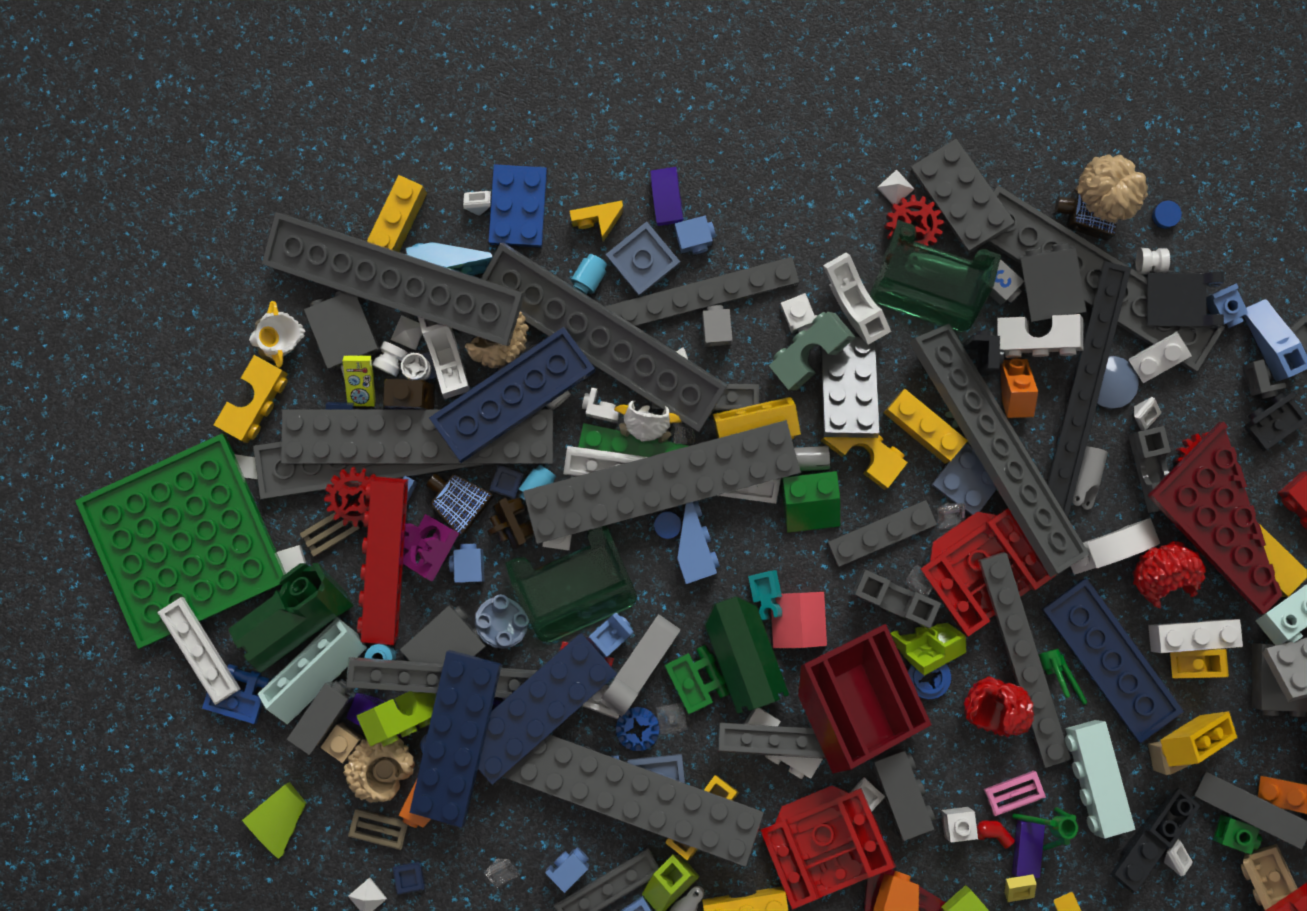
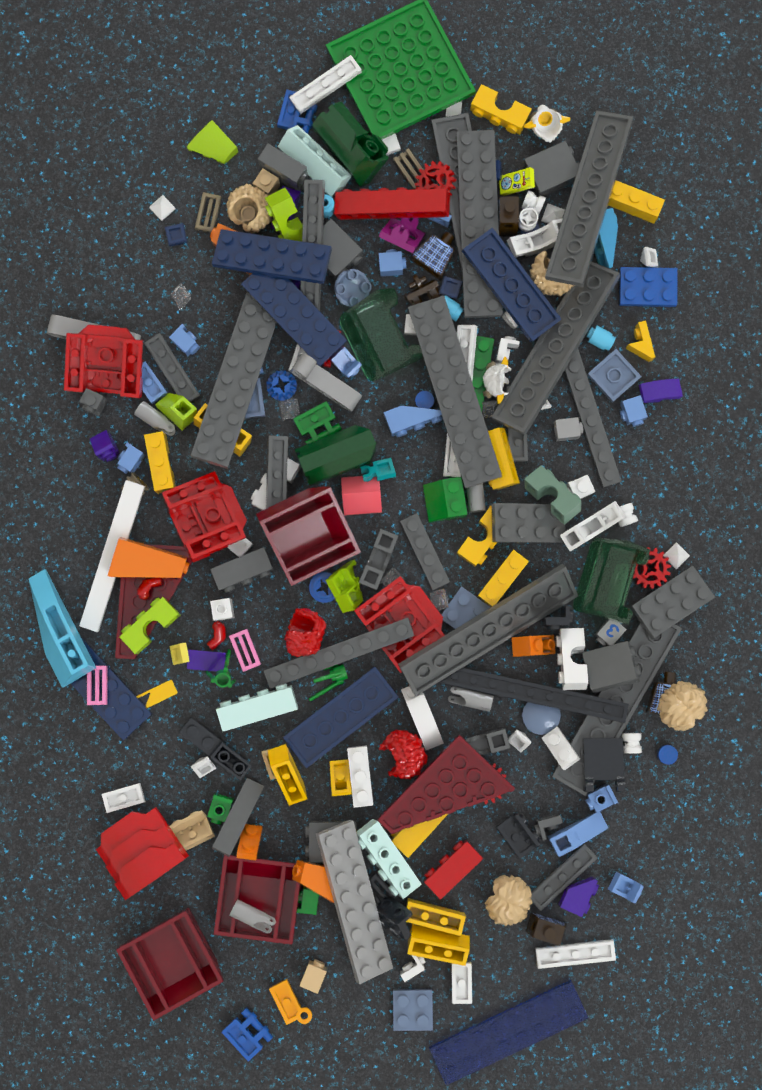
camera: 95 degrees right, 0 degrees up
(833, 250) = (629, 519): none -> white wheel

